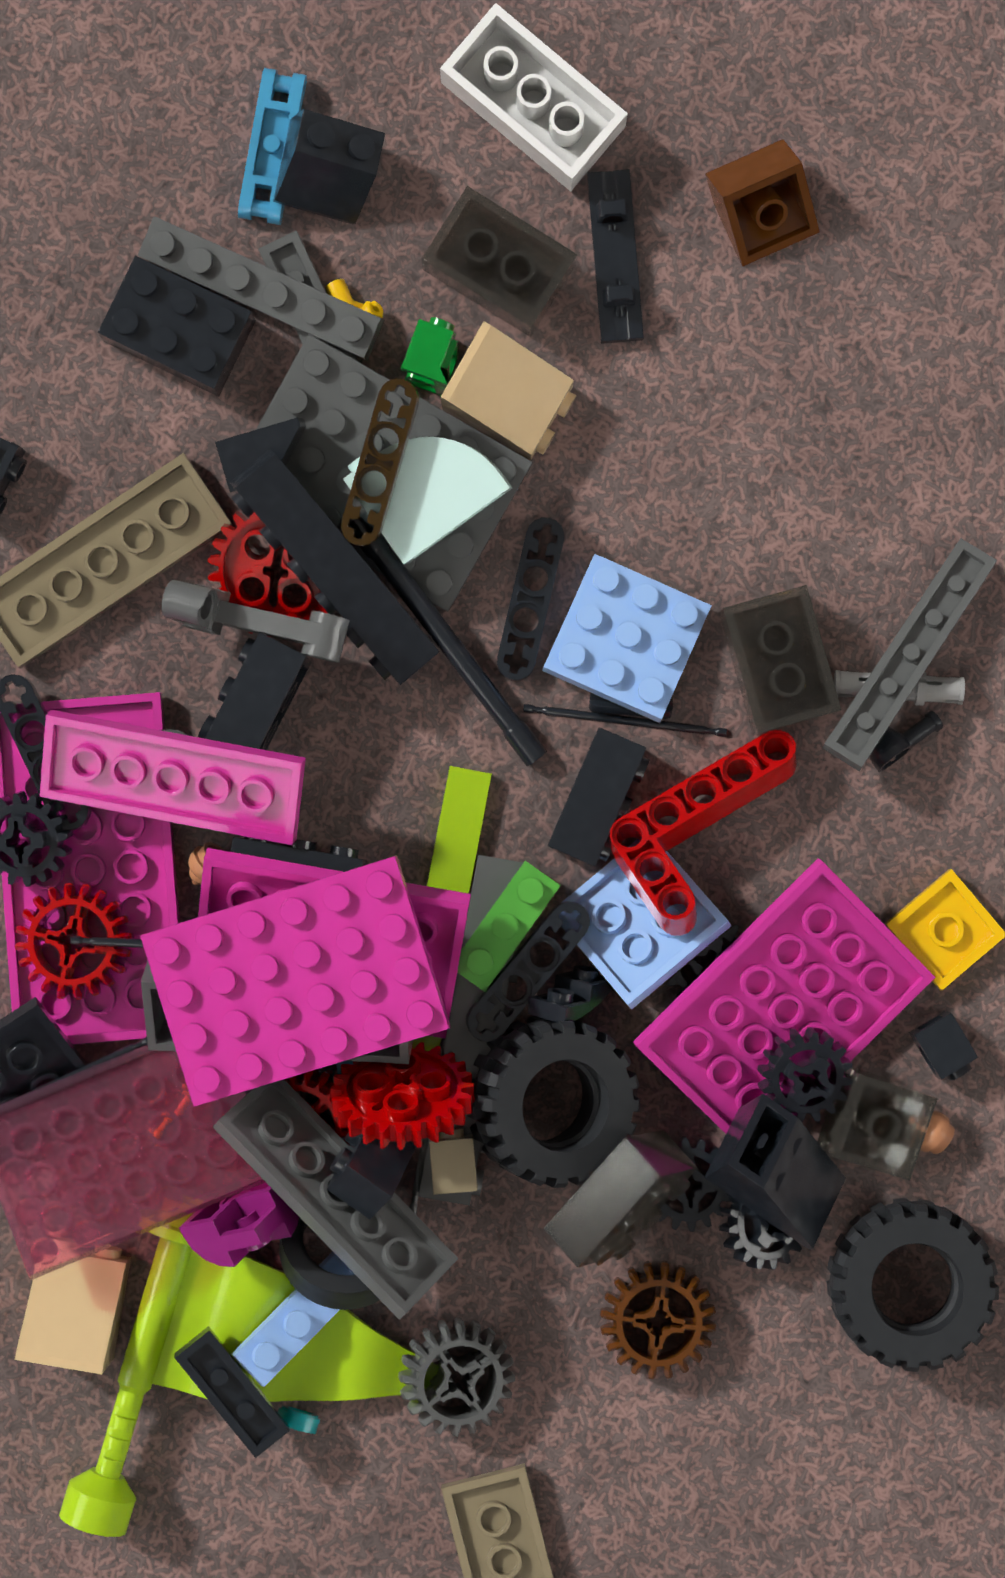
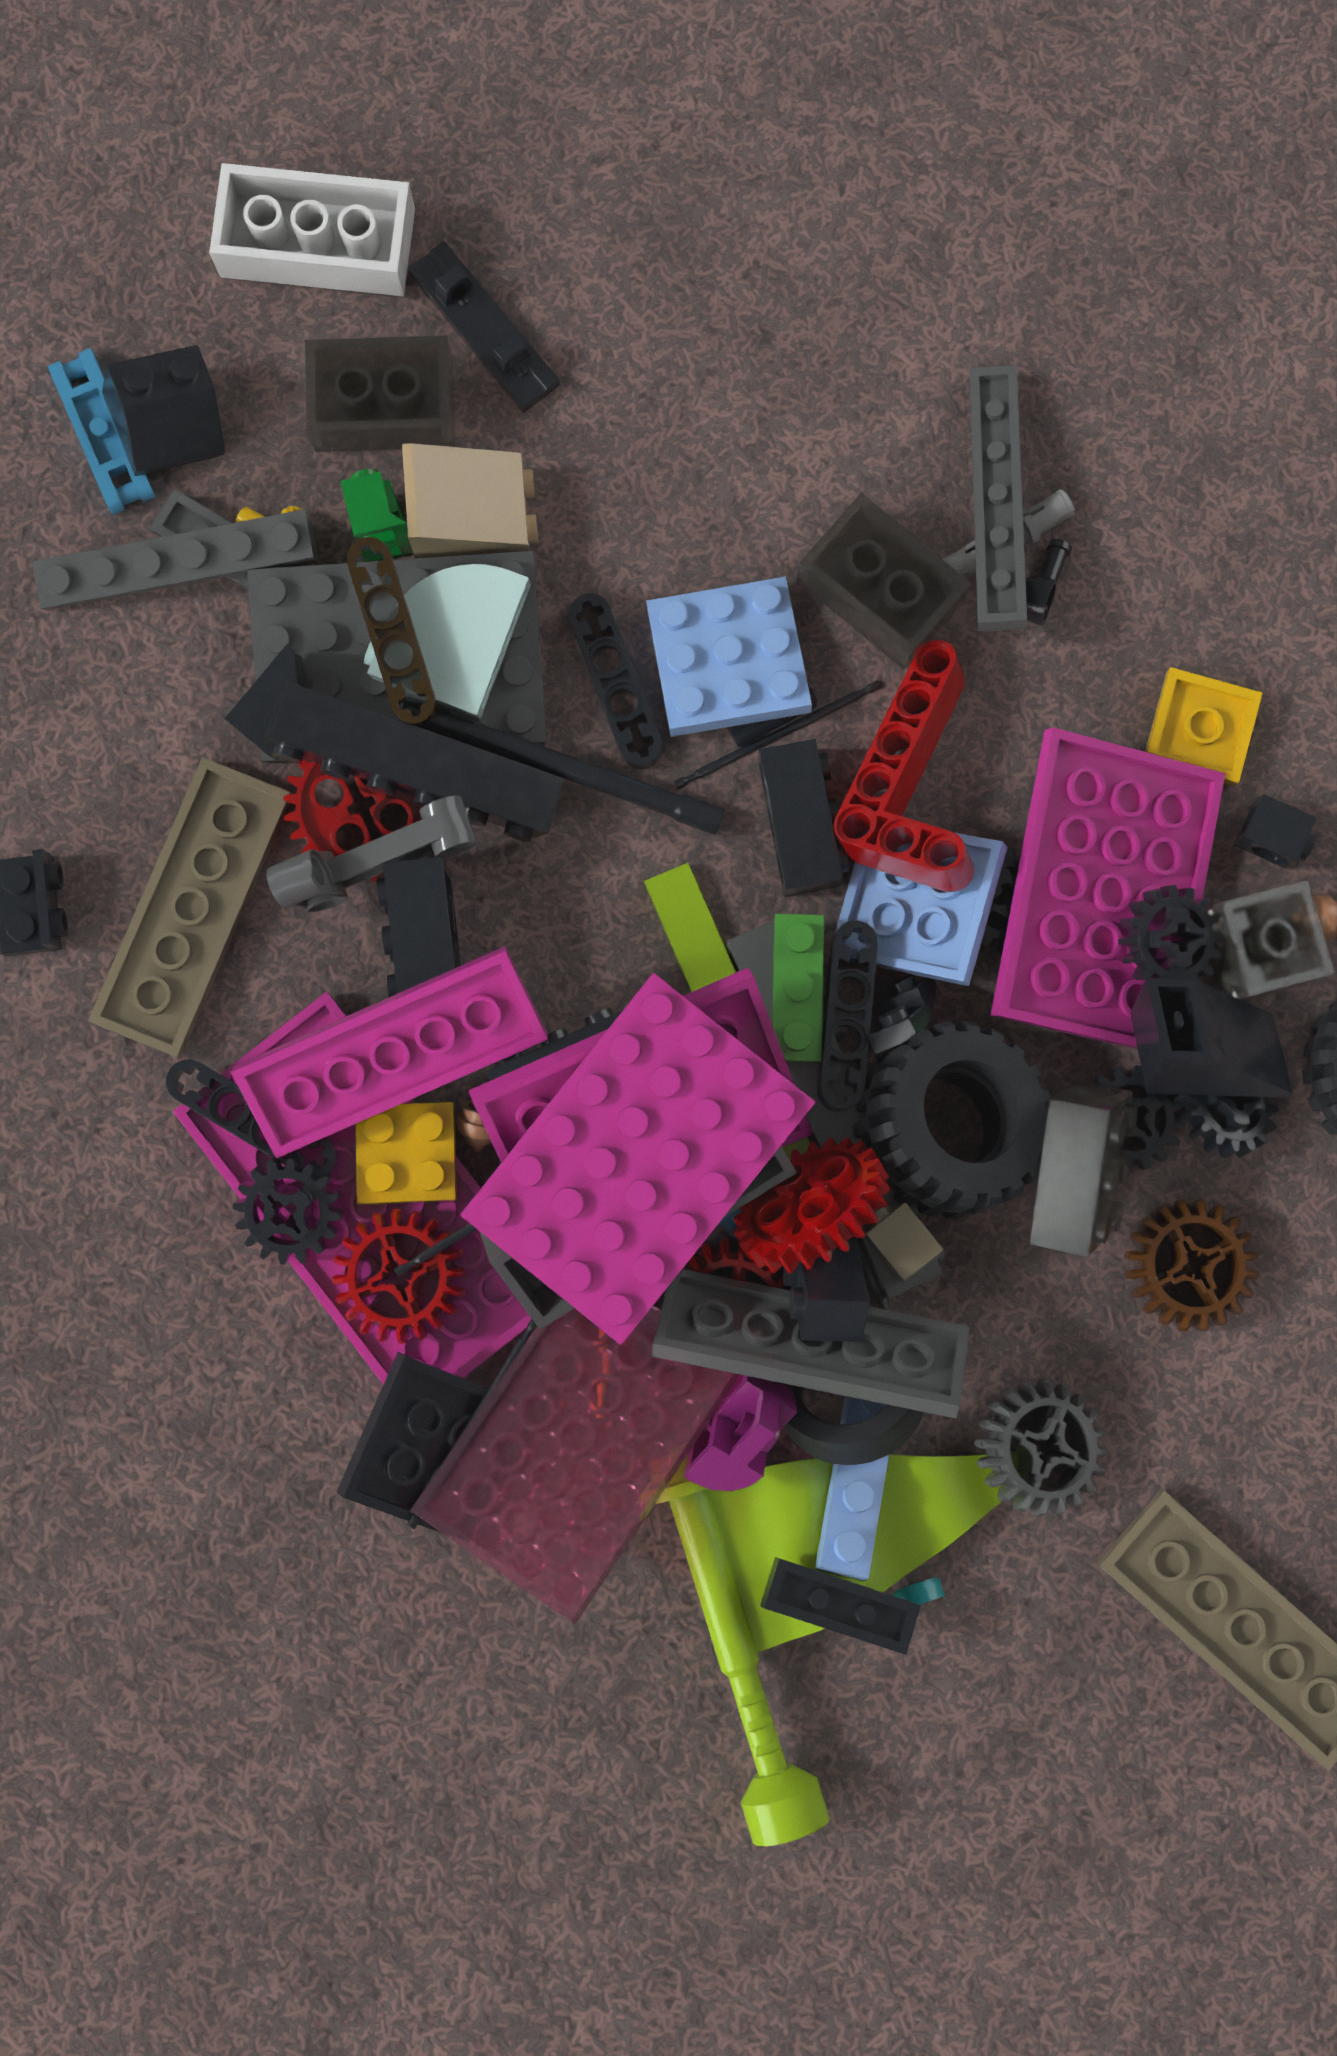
camera: 30 degrees left, 5 degrees down
(76, 1314) = (637, 1633): tan slope -> none
(138, 856) = (407, 1155): none -> yellow plate
(177, 326) = (119, 645): black brick -> none
(763, 201) = (585, 189): reddish brown slope -> none

